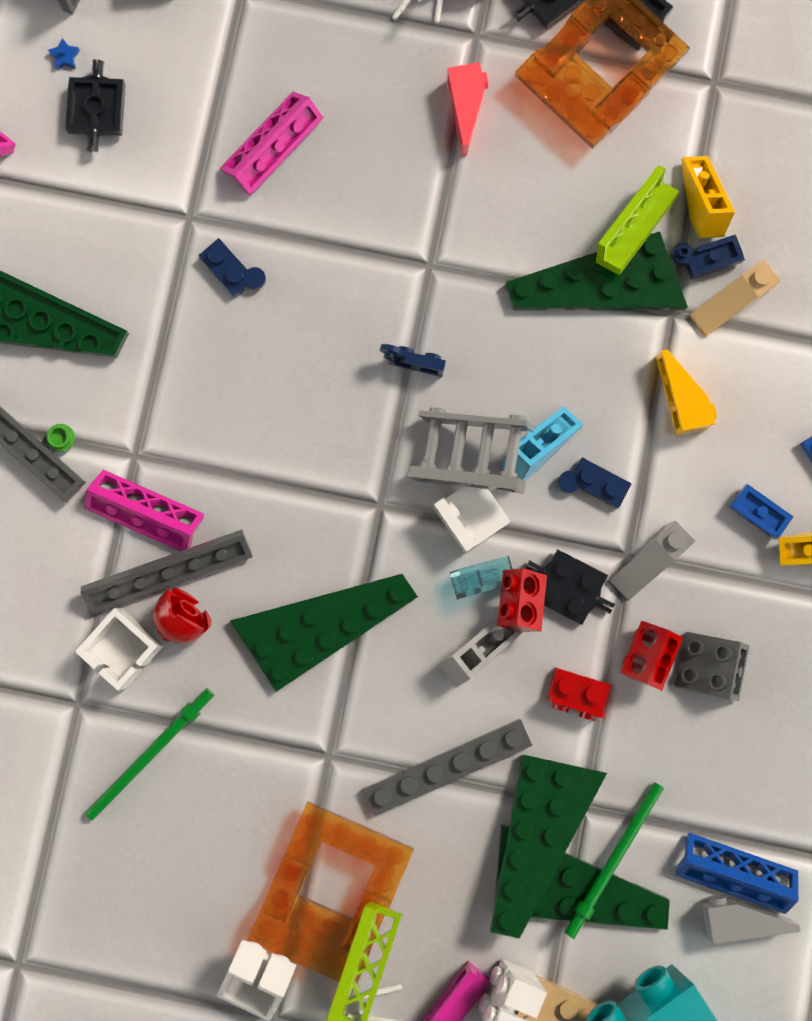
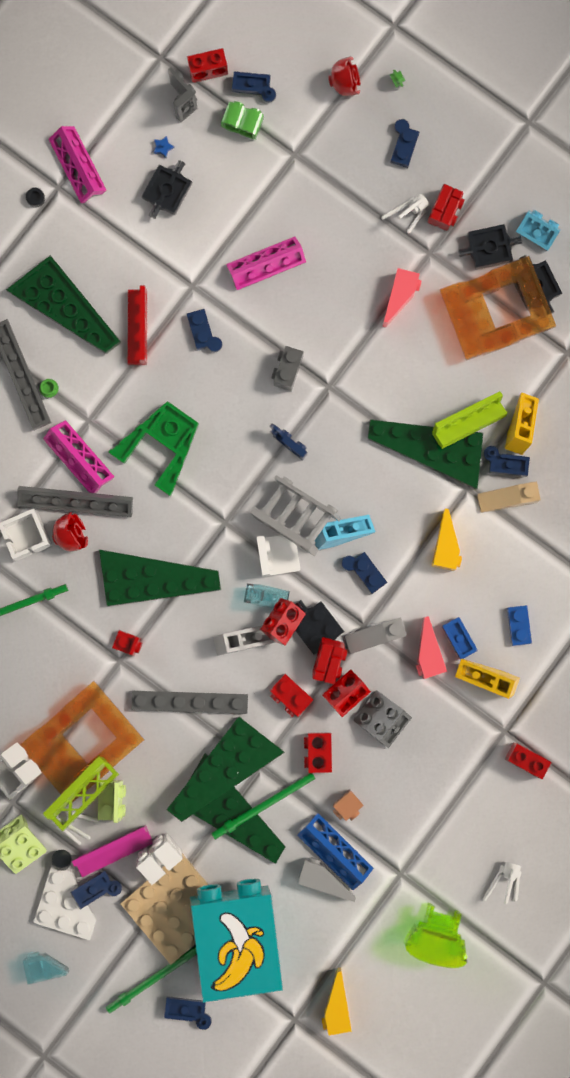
camera: 30 degrees right, 0 degrees up
(141, 302) = (137, 326): none -> red fence
(248, 415) = (171, 429): none -> green wing
(327, 728) = (127, 643): none -> red bracket
(367, 264) = (289, 365): none -> dark grey brick
(408, 955) = (110, 802): none -> yellowish green bracket
(608, 623) = (328, 660): none -> red brick
(657, 748) = (324, 752): none -> red brick
(725, 805) = (347, 806): none -> nougat brick
(731, 550) = (429, 655): none -> coral slope

